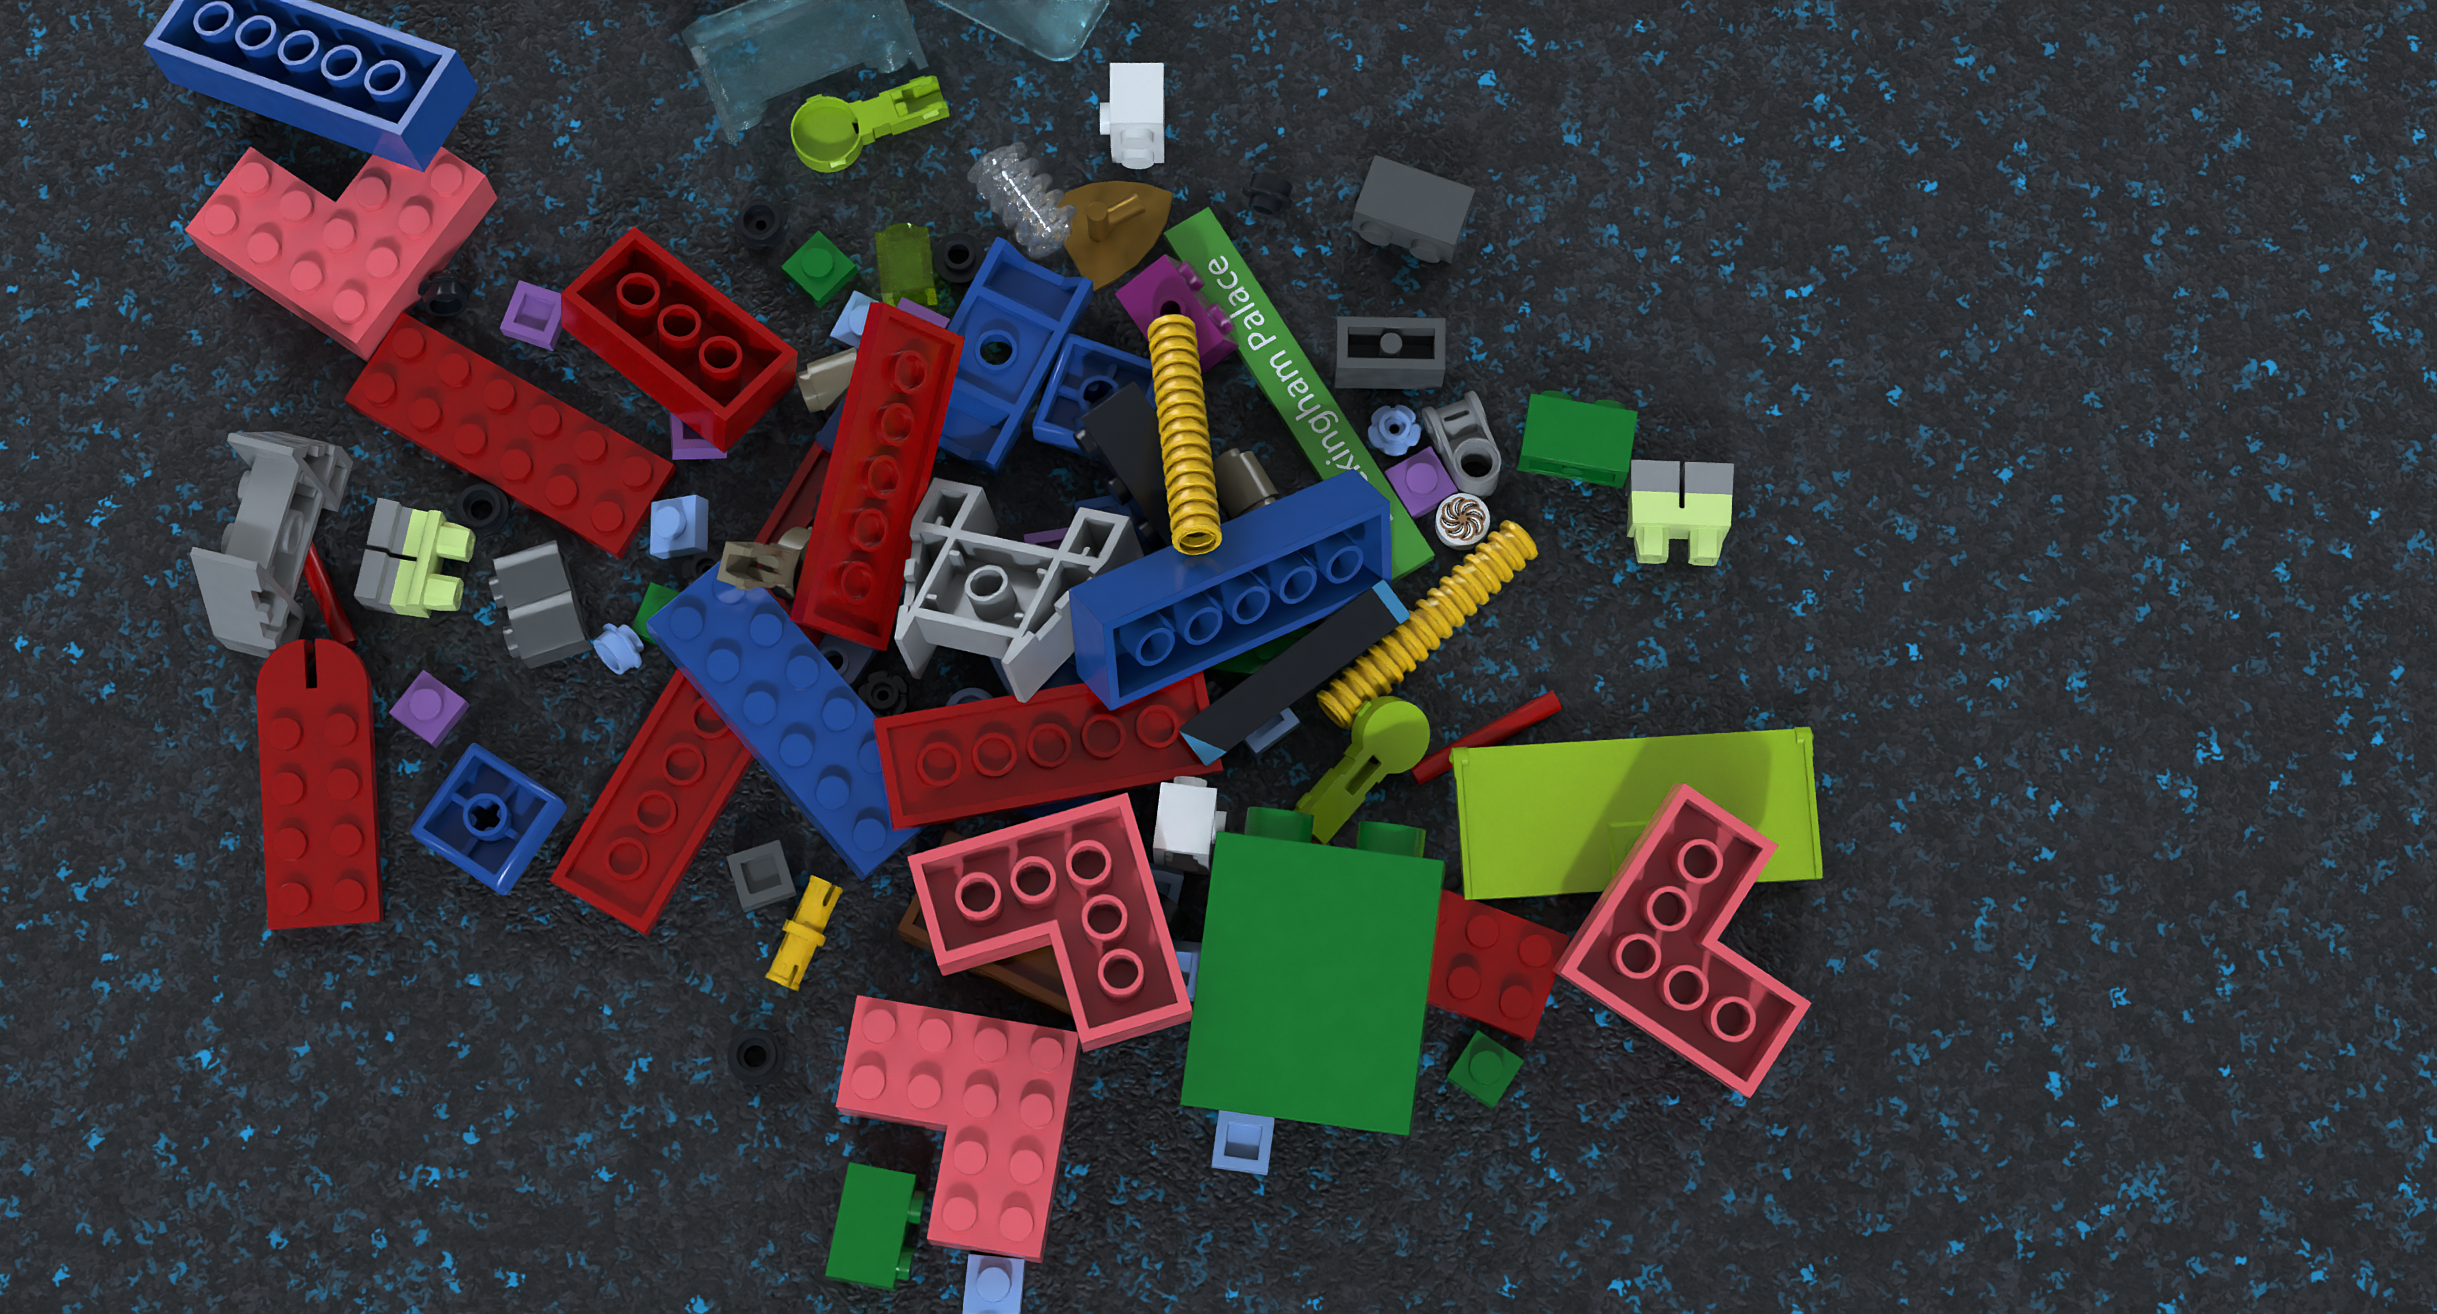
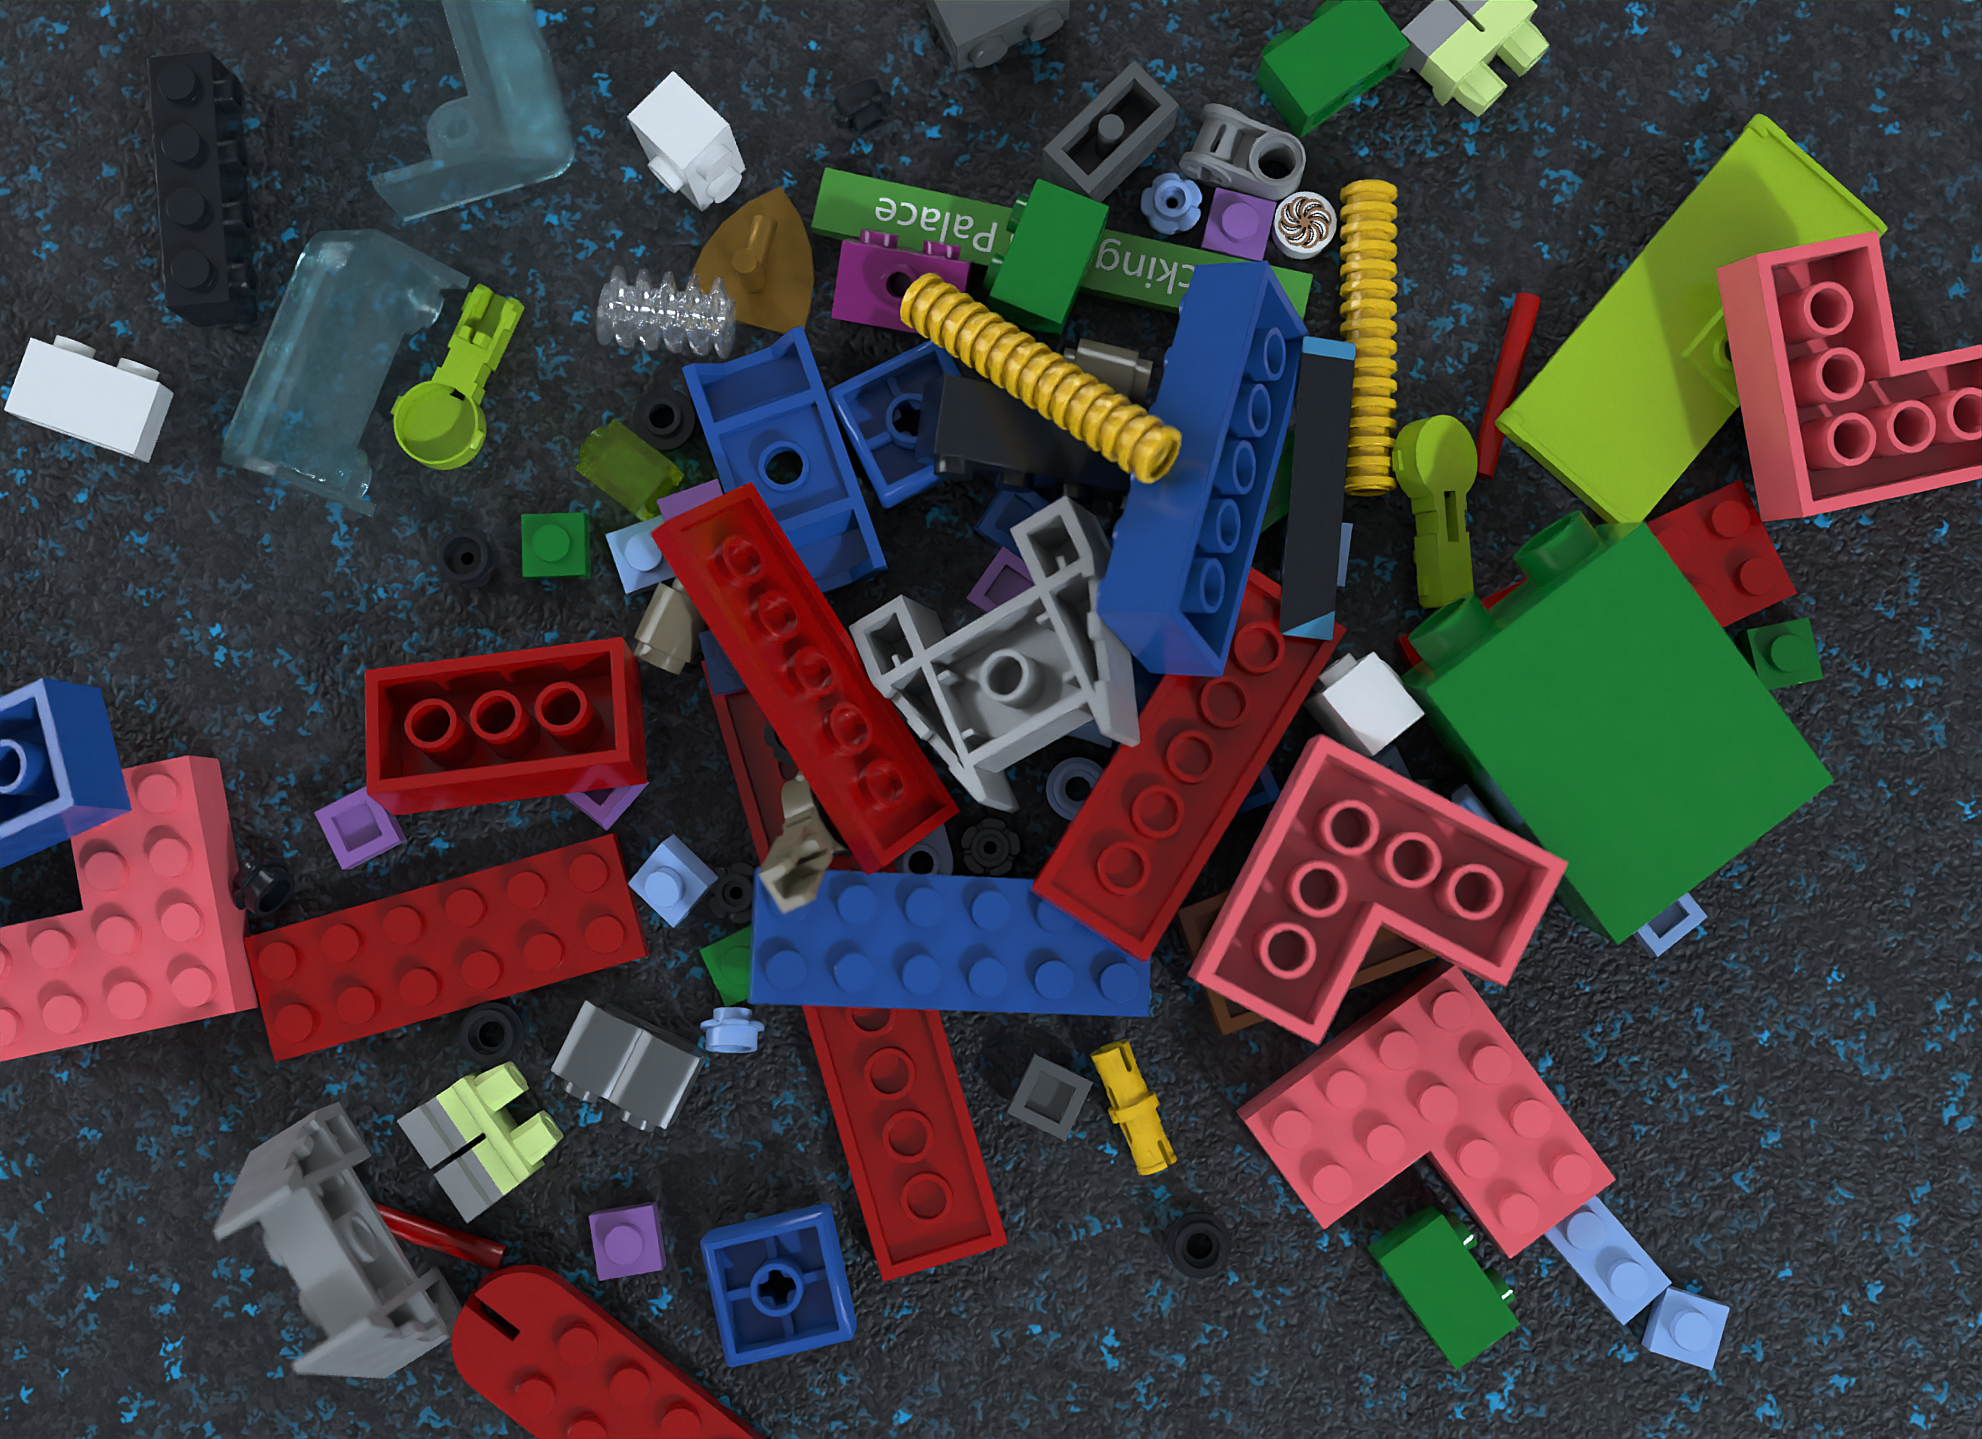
camera: 40 degrees left, 10 degrees up
(1277, 384) = (1046, 259): none -> green brick

